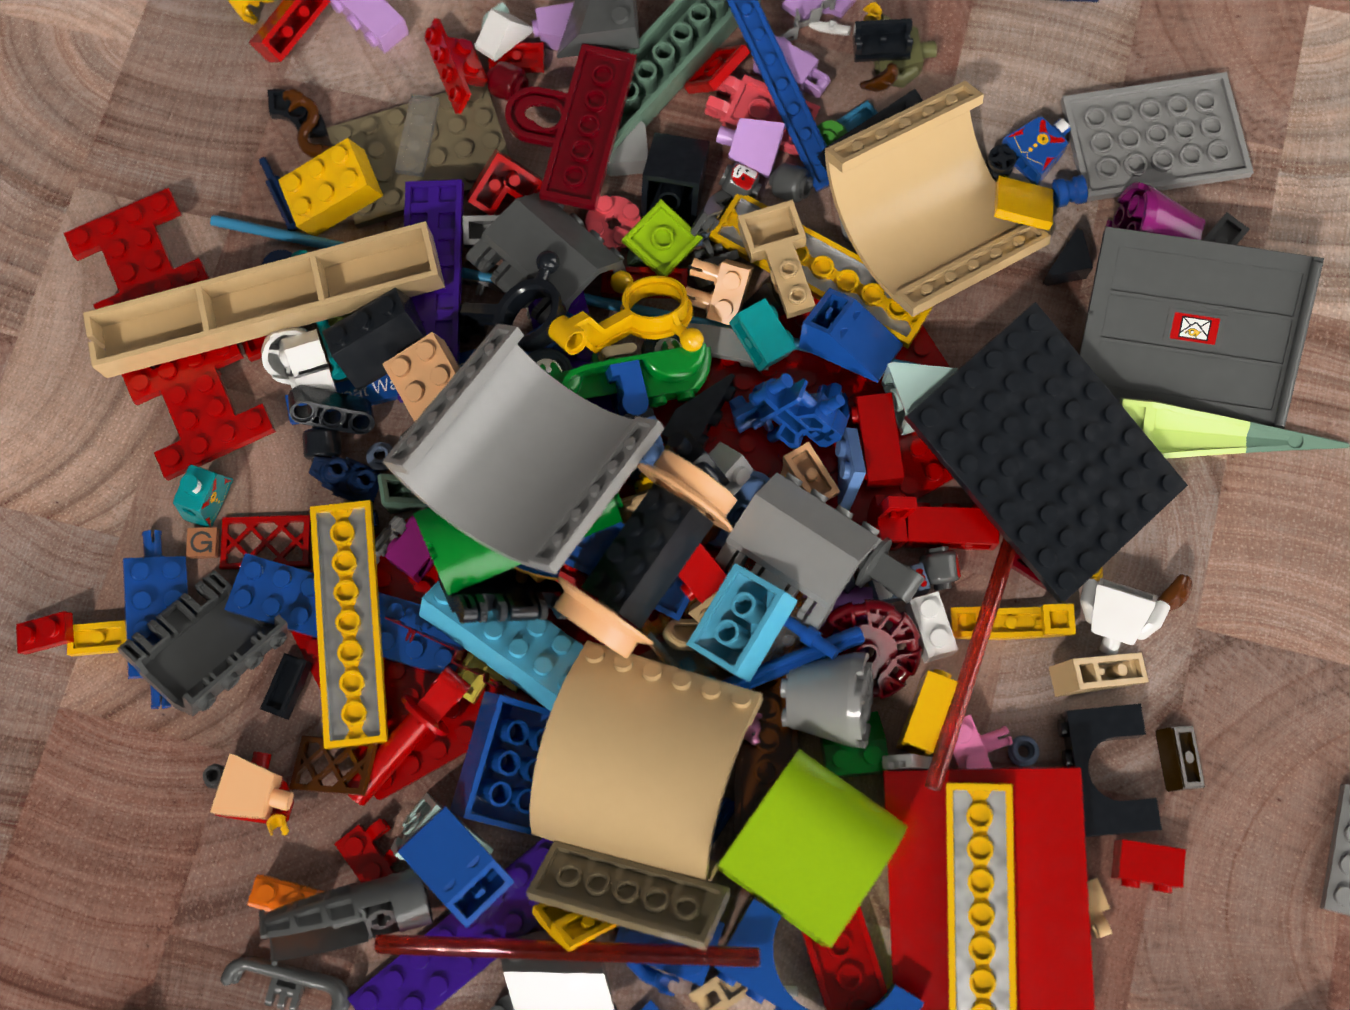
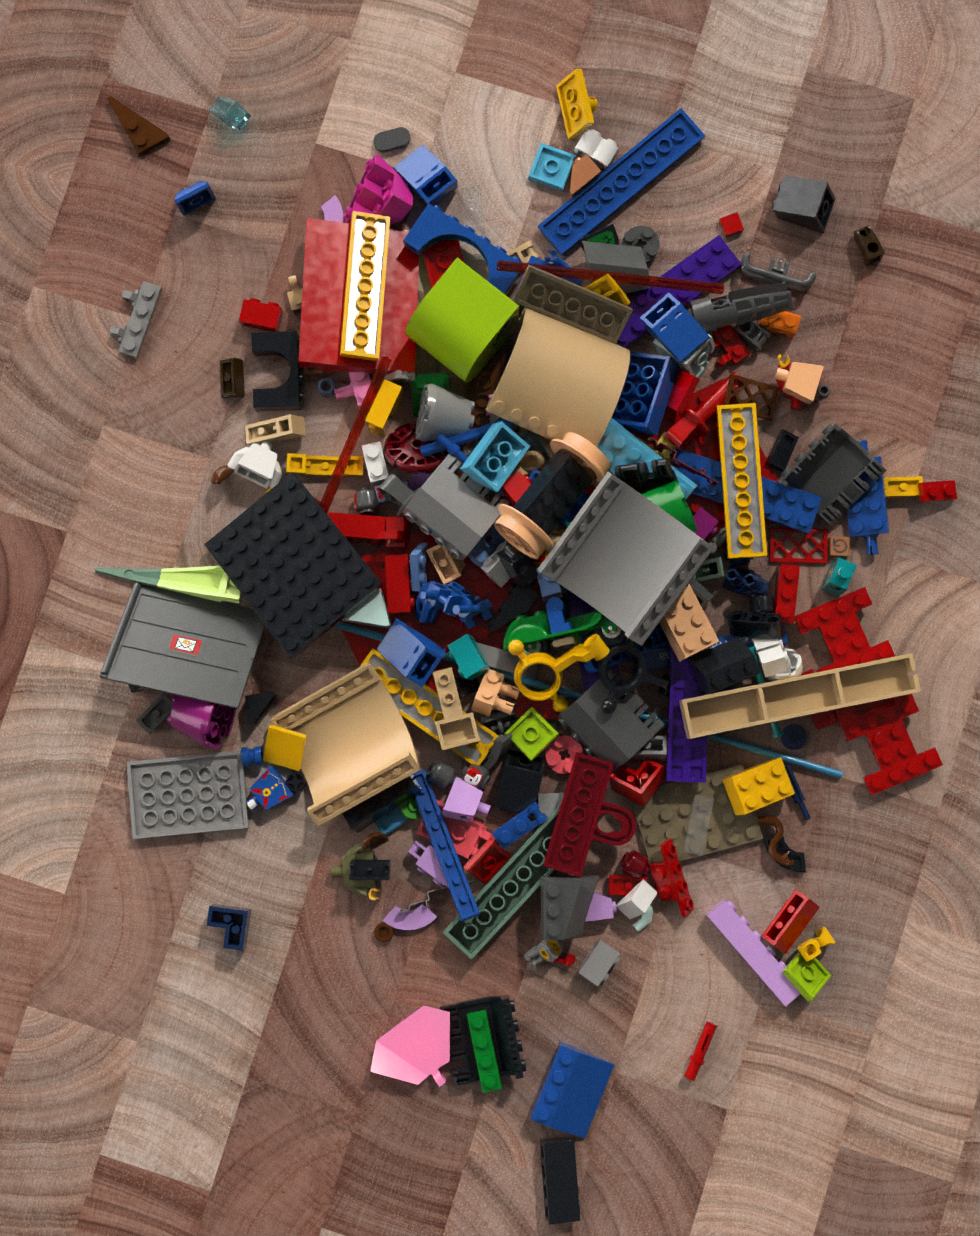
camera: 175 degrees left, 10 degrees up
(284, 464) = (786, 592): none -> red brick
(327, 871) = (752, 335): none -> dark grey piece
(375, 464) = (719, 601): sand blue plate -> none
(443, 764) = (682, 391): none -> red tile
(673, 114) = (519, 825): none -> blue plate
(831, 27) = (403, 896): white helmet -> none

